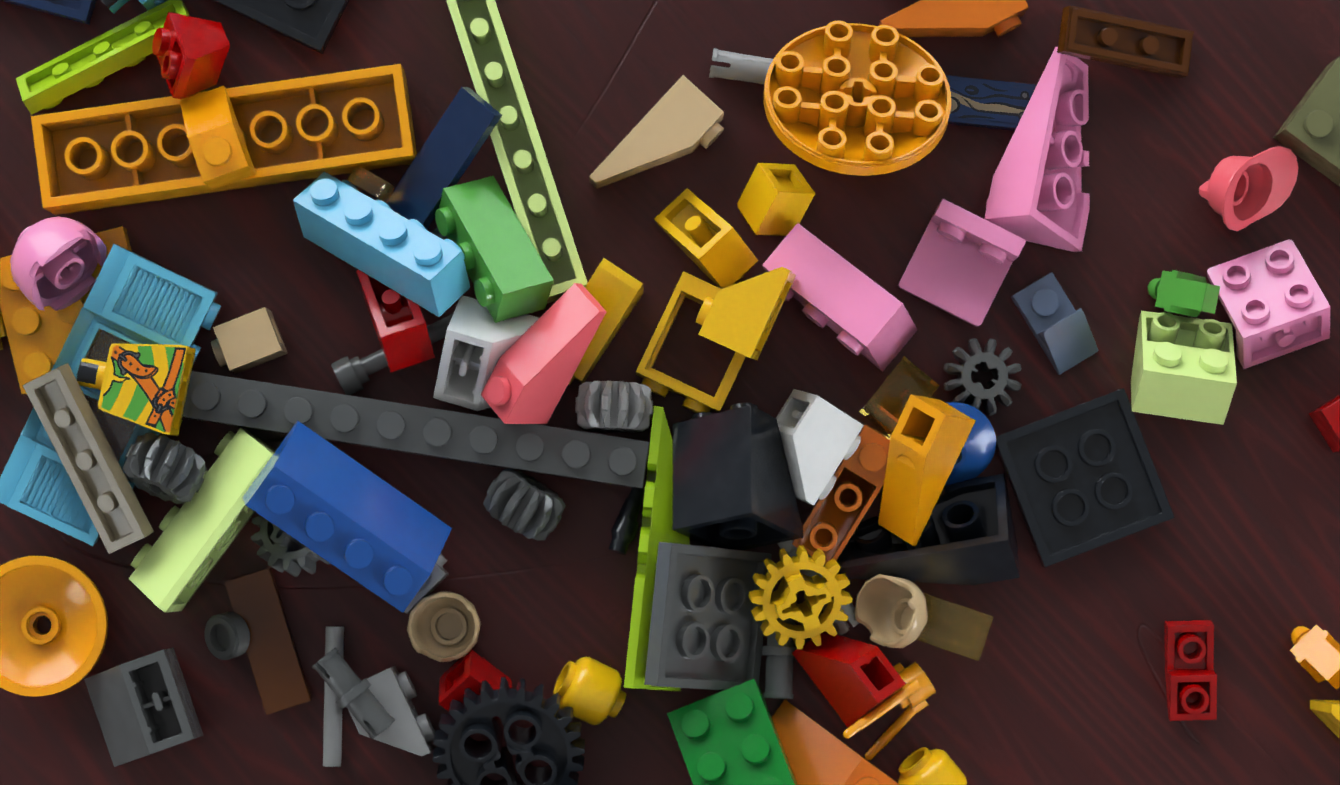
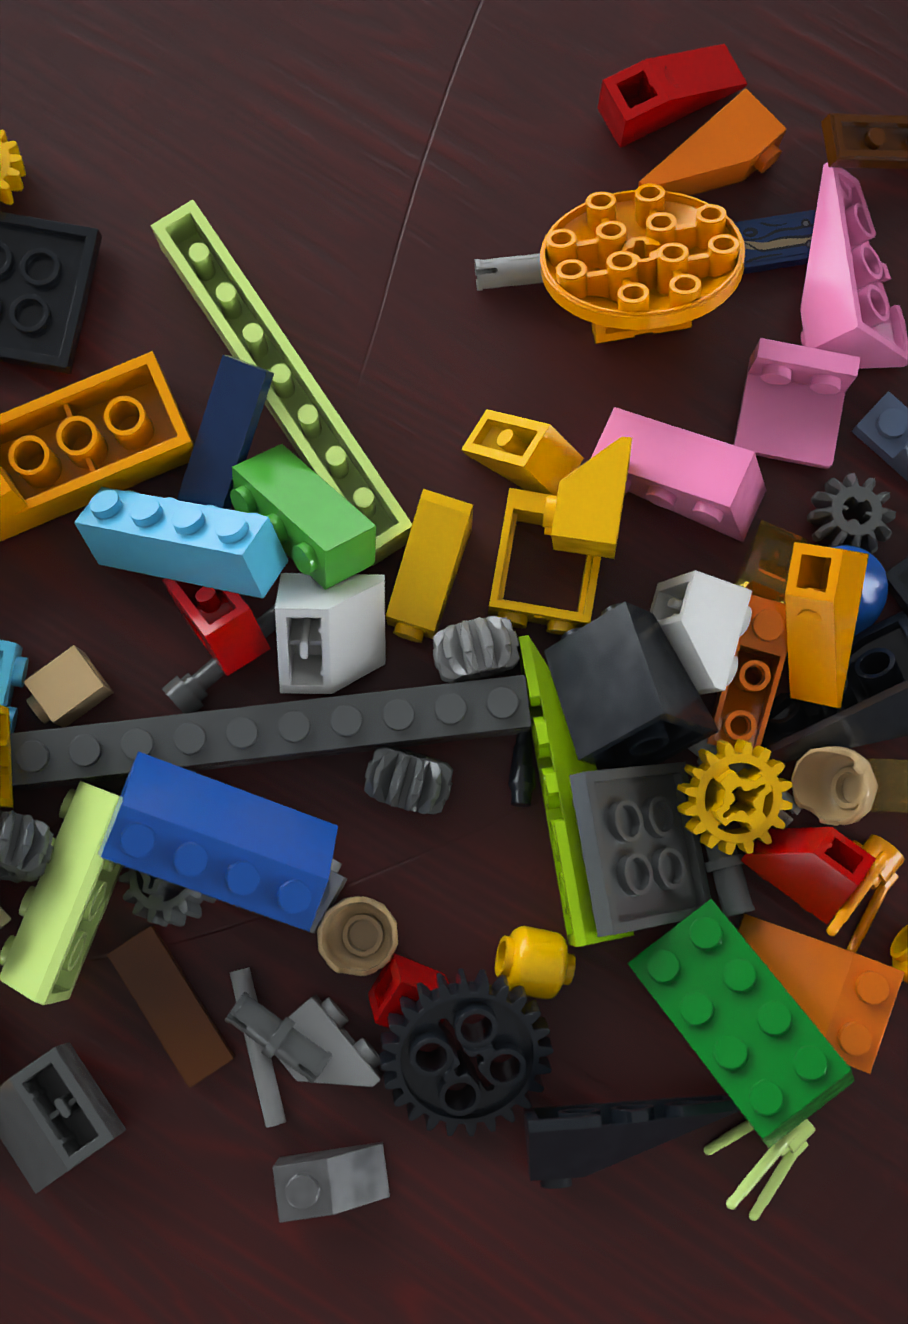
camera: 15 degrees left, 5 degrees down
(227, 635) = (124, 1012): dark grey tile -> none
(371, 183) = (154, 484): clear orange tile -> none
(543, 360) = (387, 619): coral slope -> none
(666, 132) = (448, 359): tan slope -> none
(775, 199) = (581, 393): yellow panel -> none

